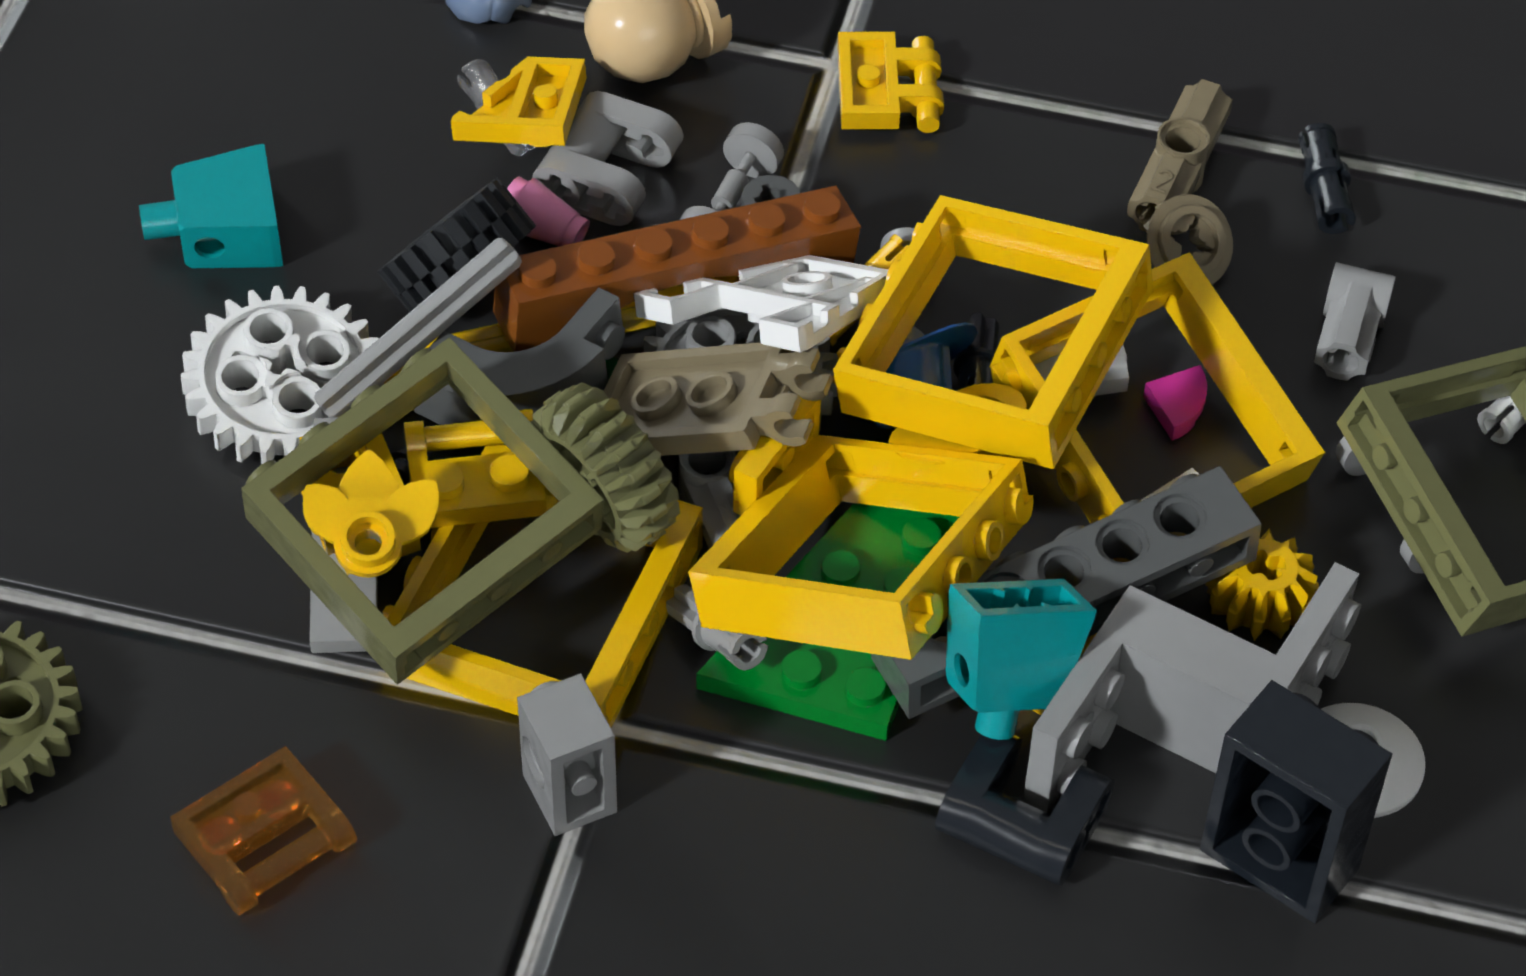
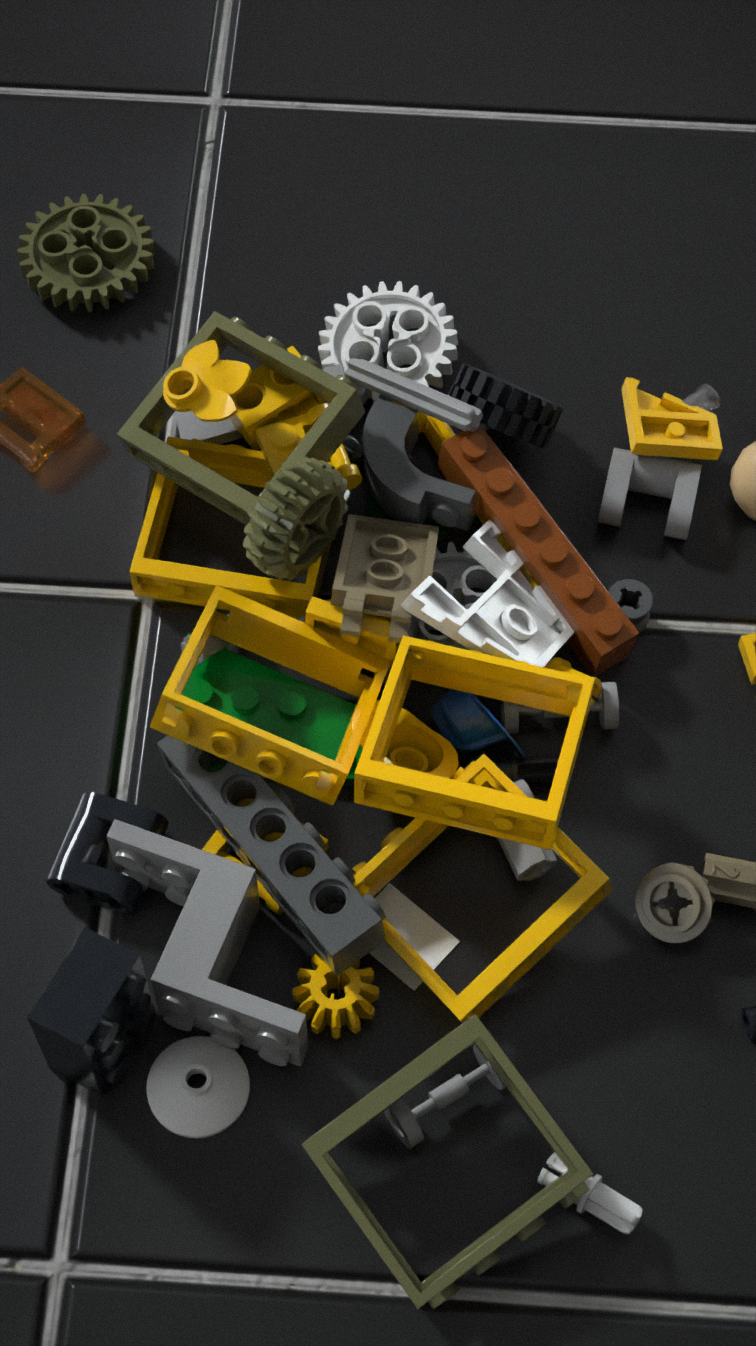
camera: 80 degrees right, 10 degrees up
(220, 212) = (529, 280): teal torso -> none
(554, 218) = (582, 461): bright pink cone -> none
(567, 754) = (87, 557): light grey brick -> none
(752, 153) = (647, 576): light grey wheel -> none
(1013, 646) = (181, 790): teal torso -> none
(1177, 400) = (512, 917): dark pink tile -> none
(1353, 313) = (648, 1043): light grey piece -> none

